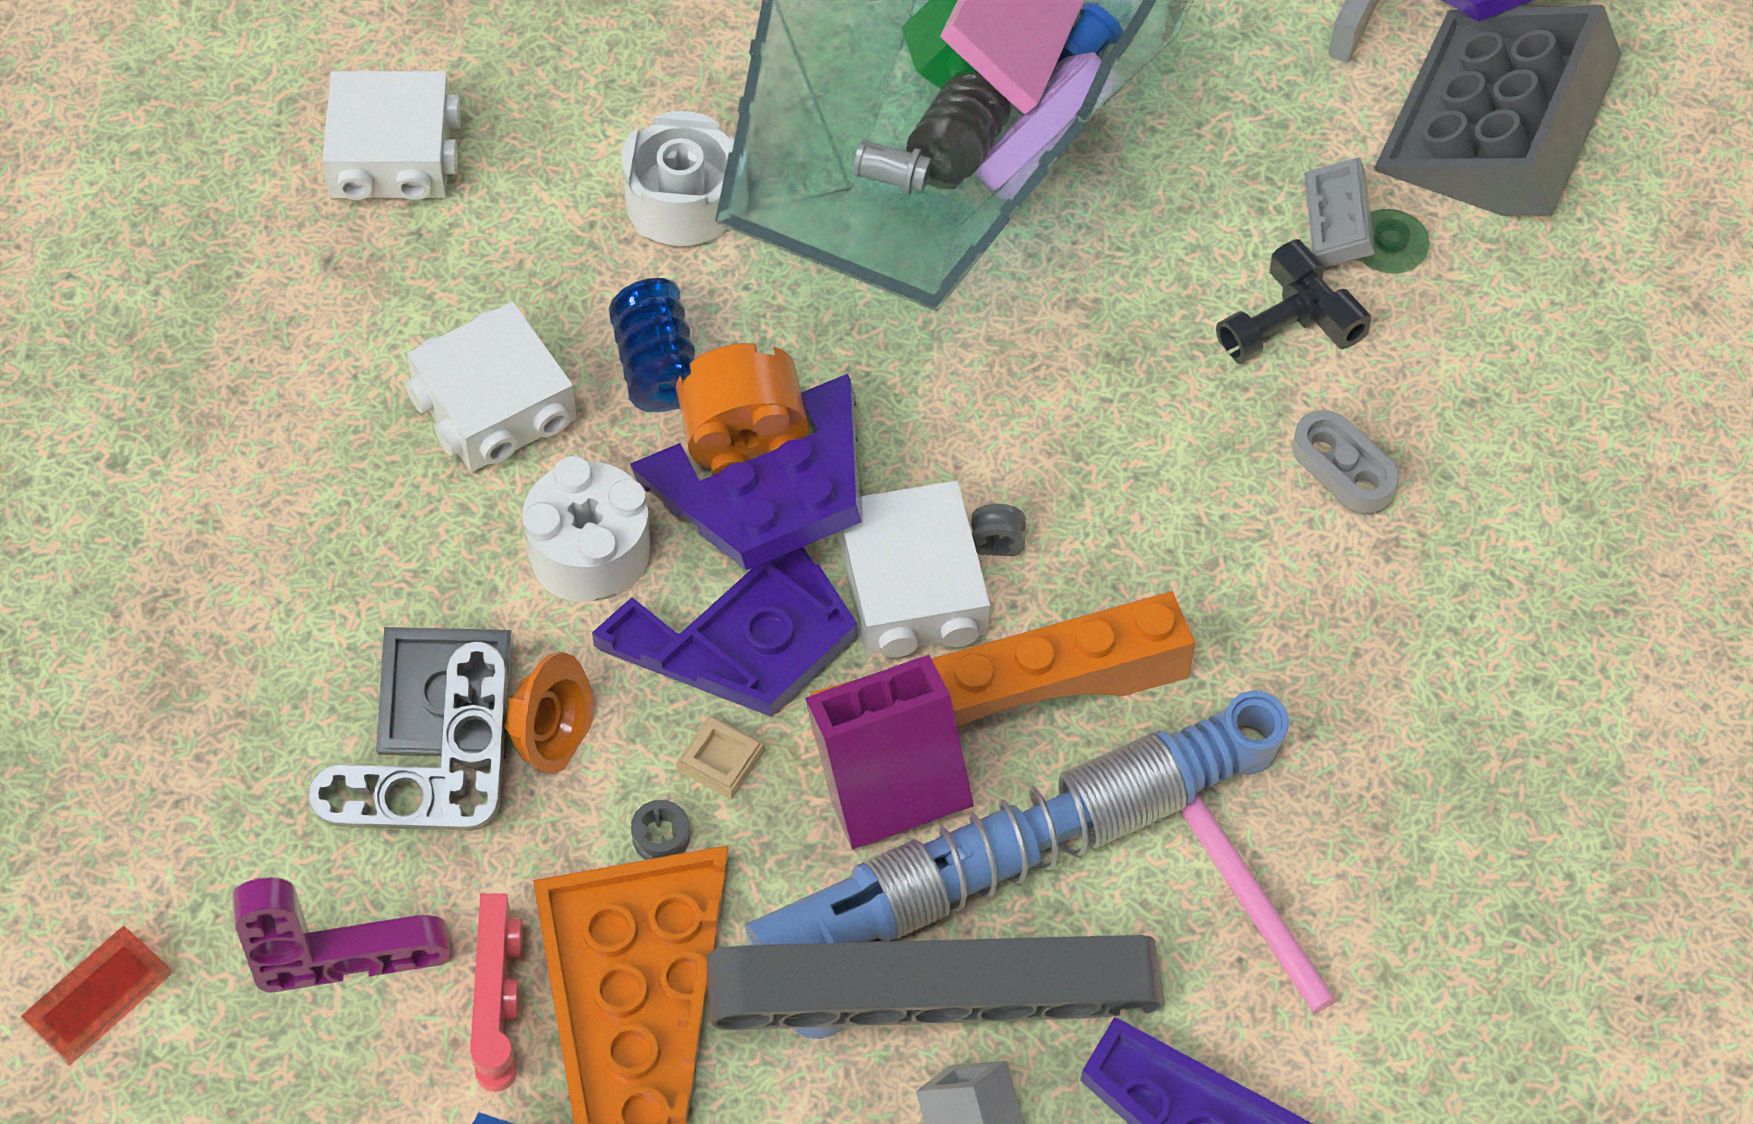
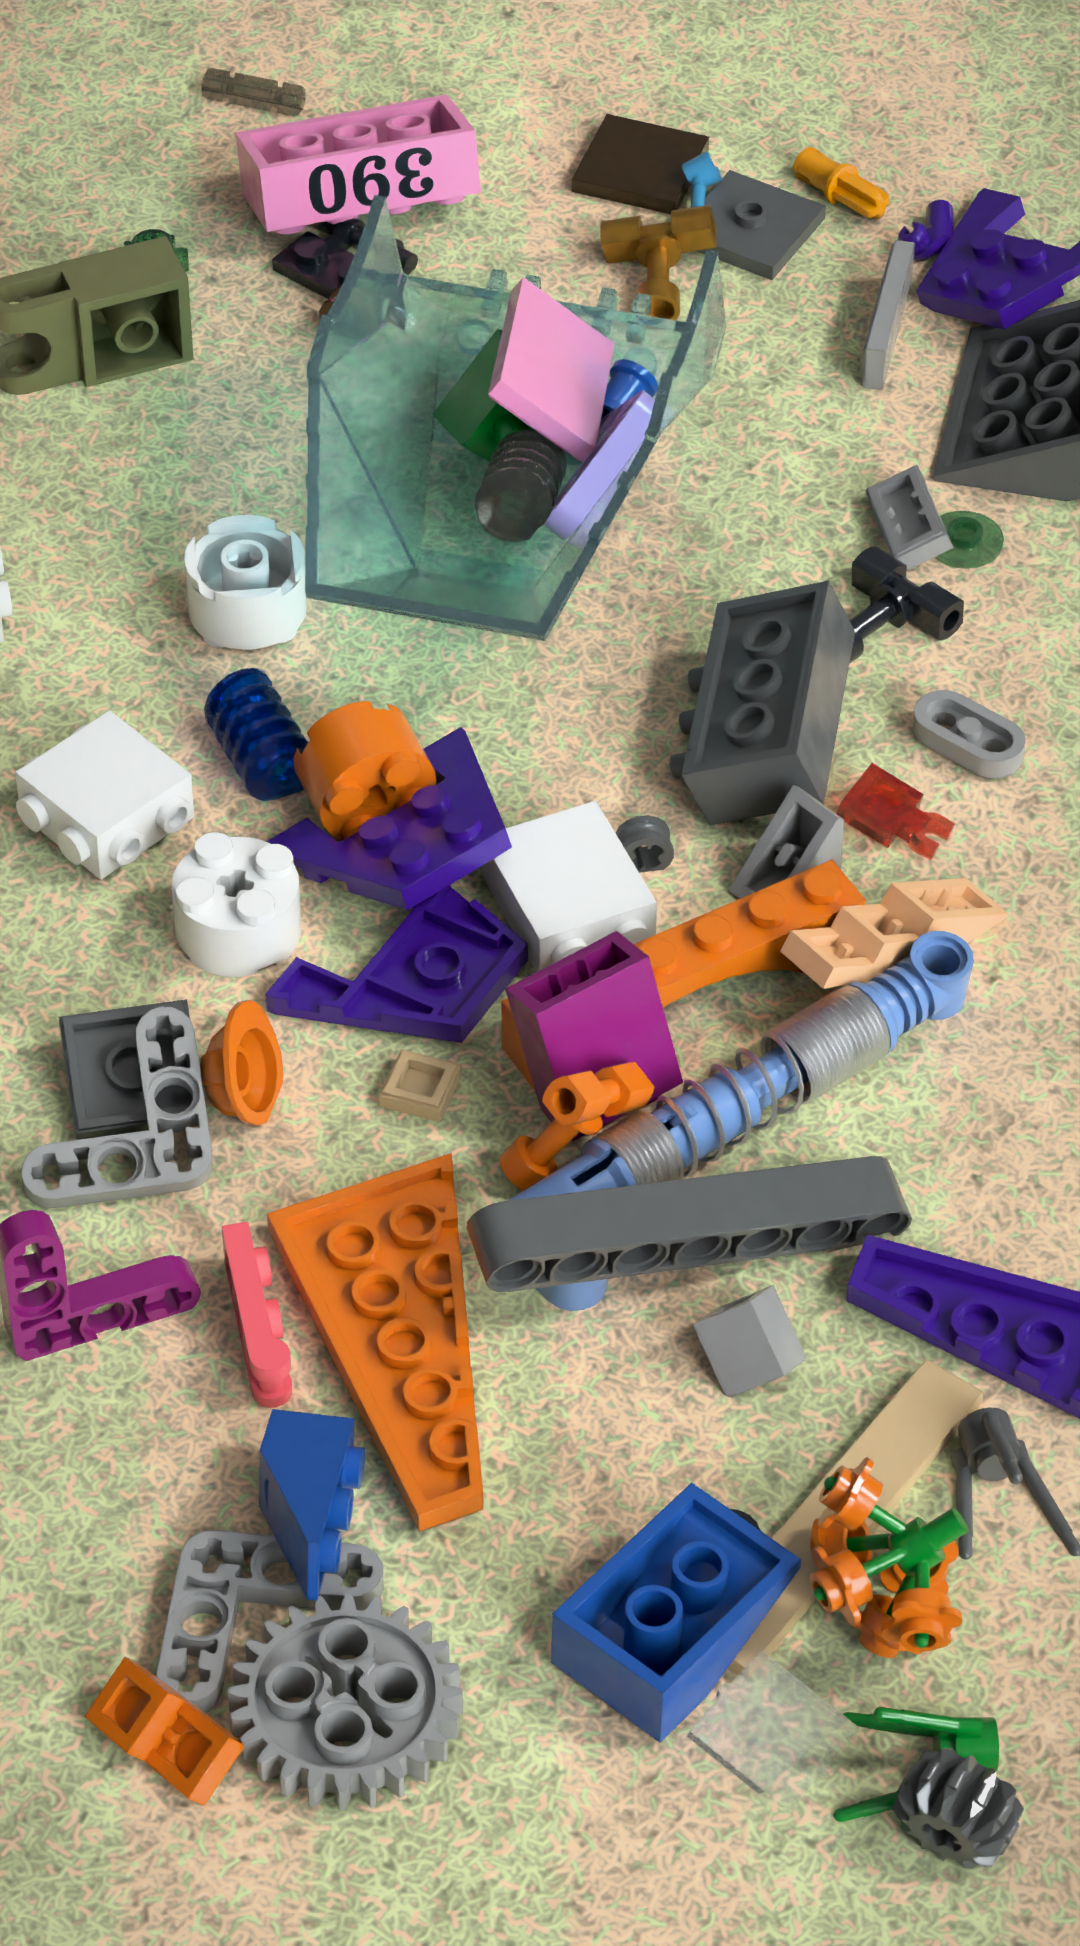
camera: 10 degrees left, 10 degrees down
(654, 812) = (377, 1139): dark grey bush -> none
(852, 836) = (577, 1107): none -> orange bar
(892, 166) = (466, 523): light grey pin -> none
(1140, 565) = (795, 840): none -> light grey slope
(1150, 402) = (766, 702): none -> dark grey piece
(1204, 679) = (878, 936): none -> light nougat slope
(1246, 531) = (890, 808): none -> clear red plate
(1258, 906) = (979, 1126): bright pink bar -> none

